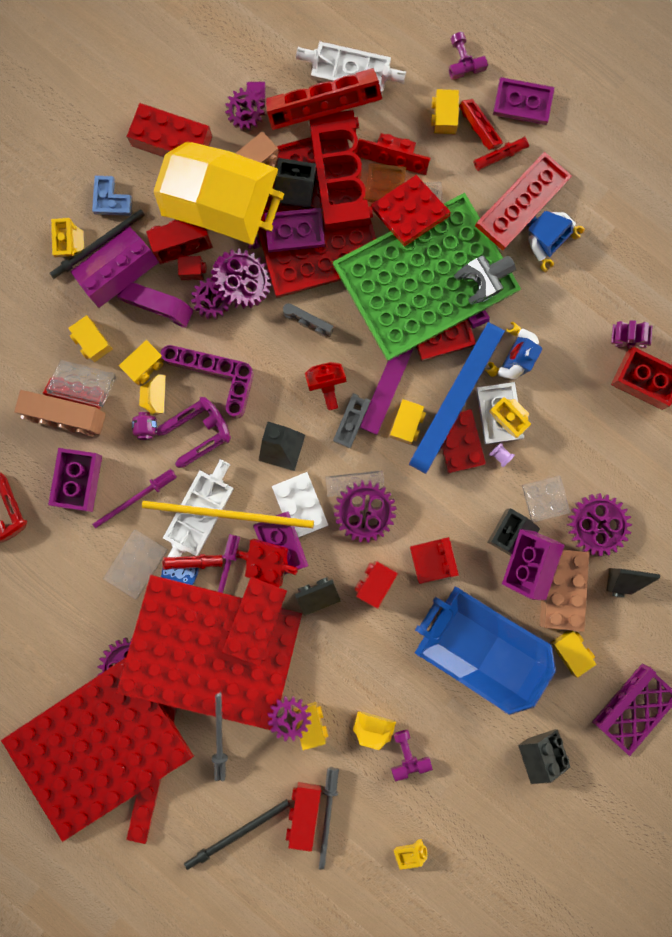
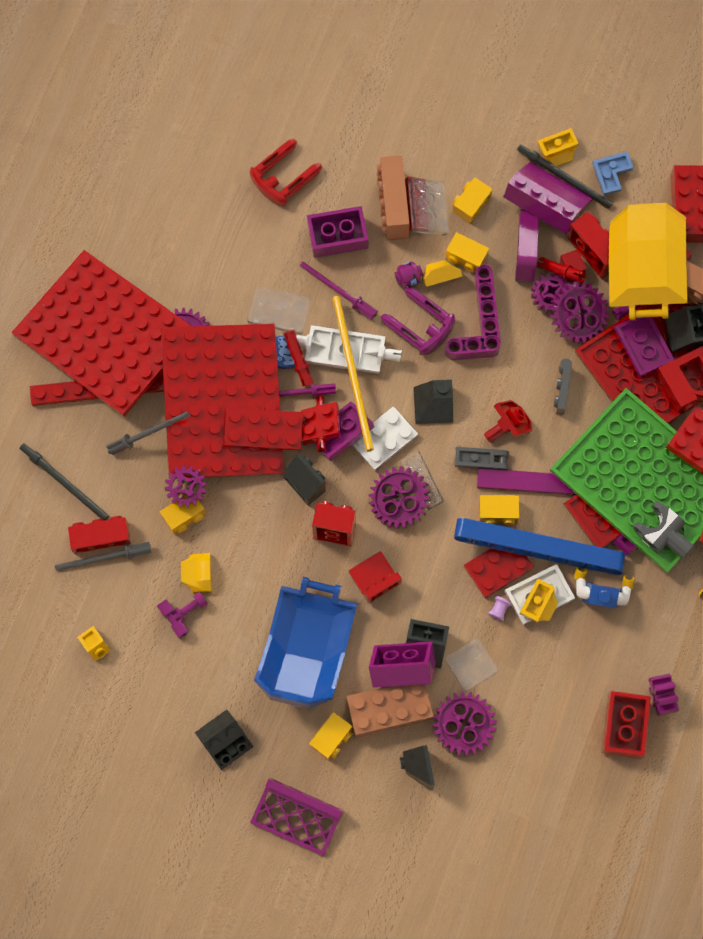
camera: 70 degrees right, 10 degrees down
(198, 274) = (566, 271): none -> red pin

